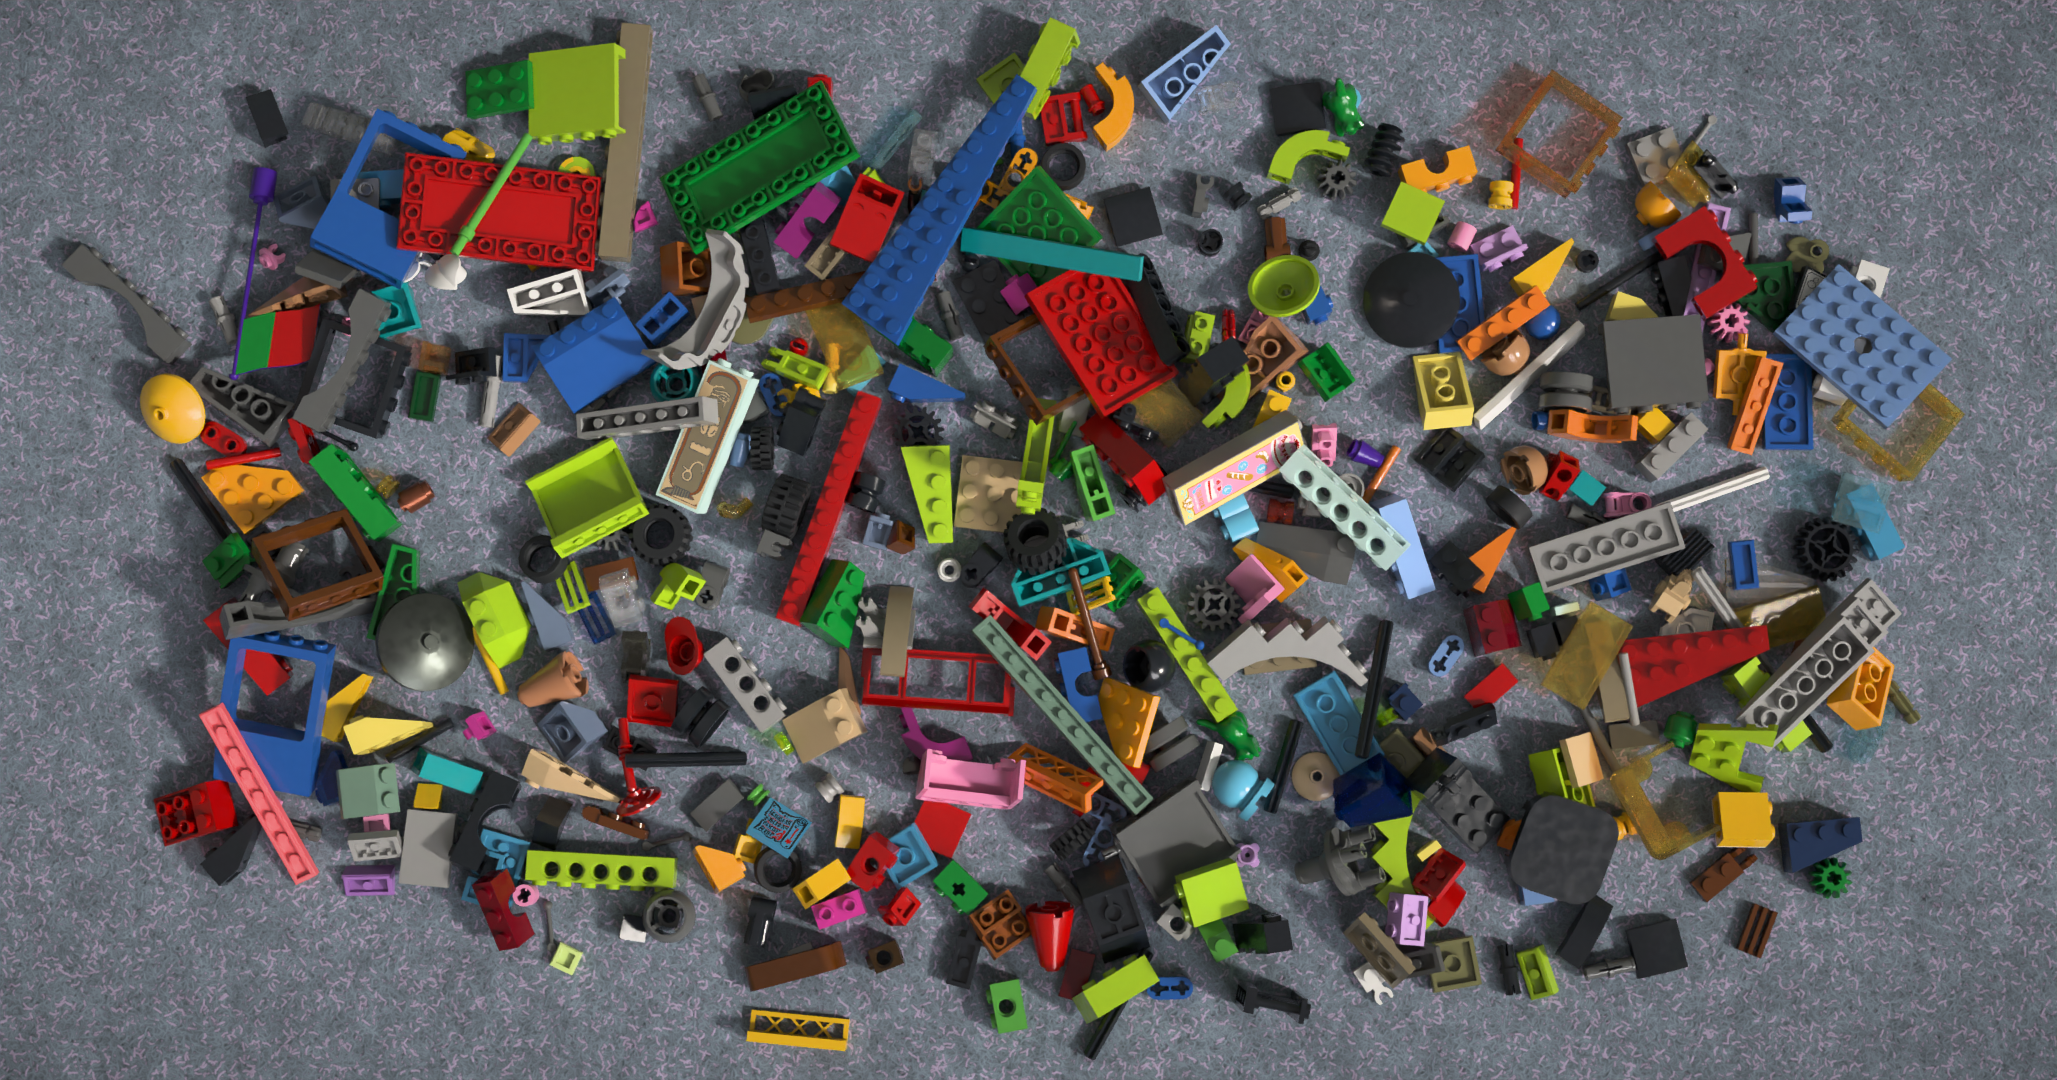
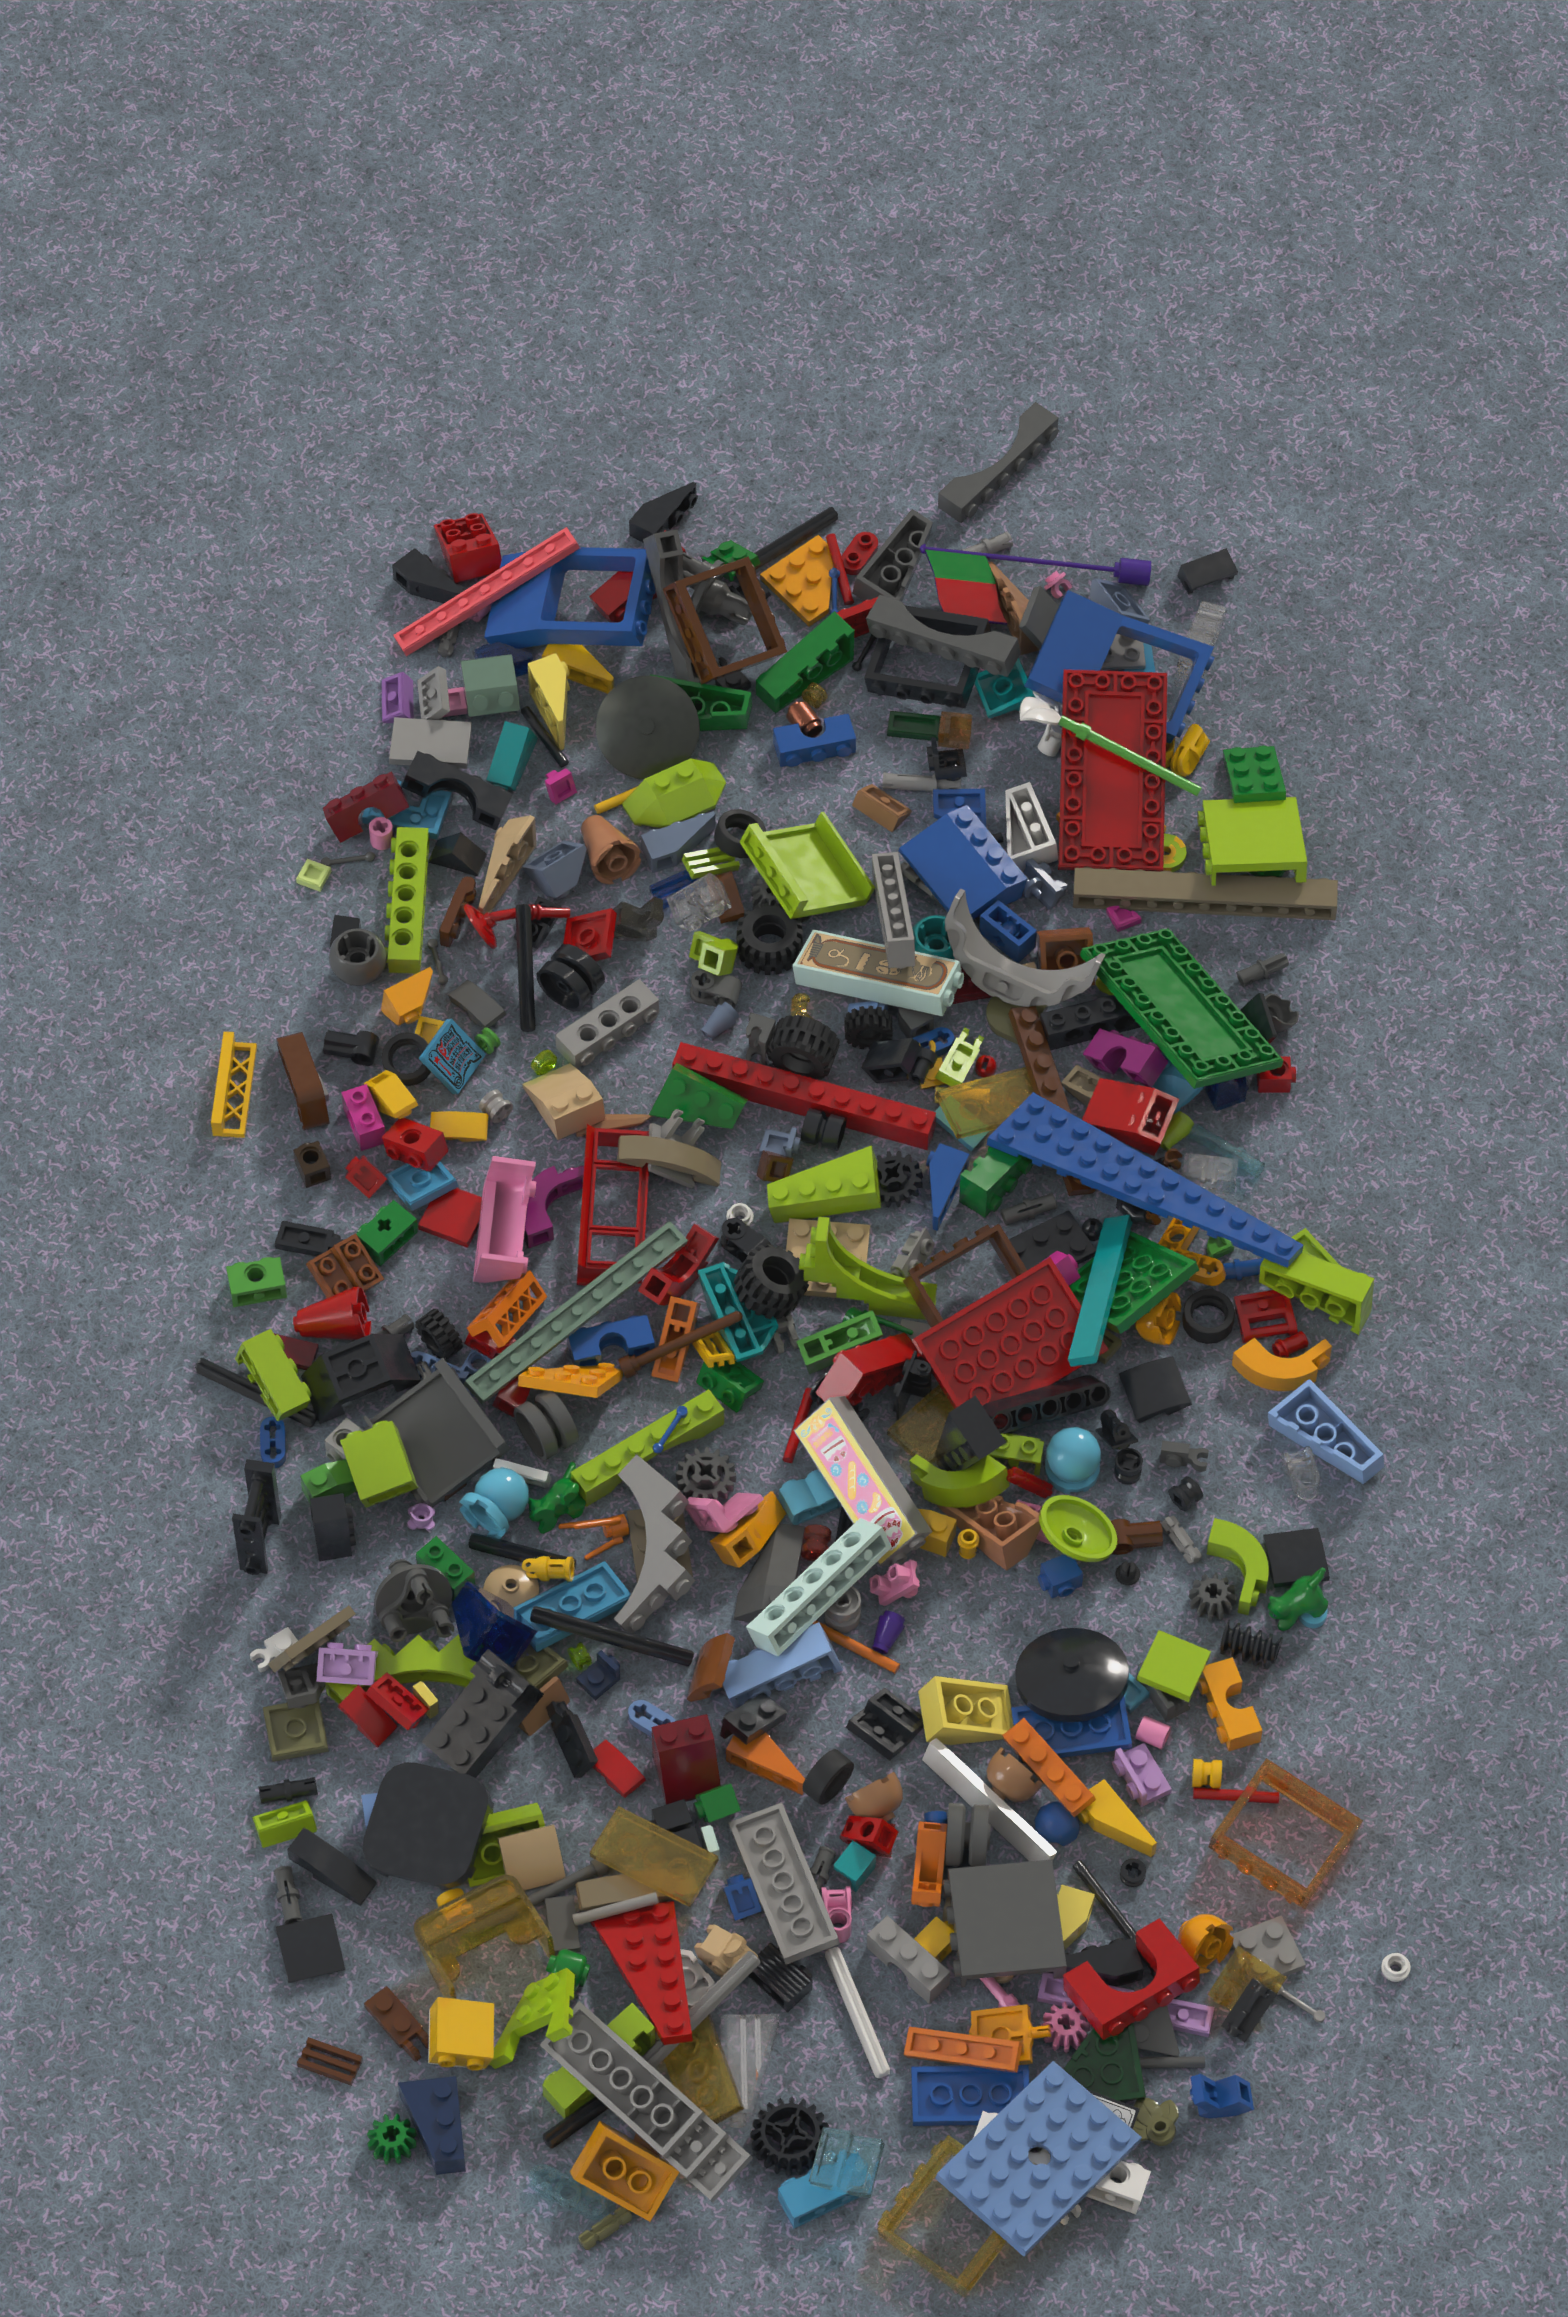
camera: 90 degrees right, 25 degrees down
(170, 627) = (662, 512): none -> black slope
(172, 408) = (888, 502): yellow dish -> none
(250, 463) = (834, 574): none -> blue hinge
(428, 796) = (483, 745): yellow slope -> none
(446, 507) = (796, 748): none -> blue arch
(682, 646) = (647, 964): red piece -> none
(744, 583) = (720, 1020): none -> sand blue cone
(1149, 665) = (633, 1404): black wheel -> none
(1159, 523) = (802, 1414): none -> red bar
(1181, 251) = (1114, 1431): none -> black hinge
(1207, 288) = (1072, 1460): none -> medium azure tile
(1261, 686) = (613, 1527): none -> orange plant
(1303, 833) = (444, 1559): none -> green brick
(1306, 742) = (550, 1568): none -> yellow piece
(1326, 372) = (980, 1587): green bracket -> none
(1406, 604) = (711, 1667): none -> dark orange slope
(1676, 51) = (1395, 1959): none -> white plate
(1743, 565) = (766, 2029): blue tile -> none

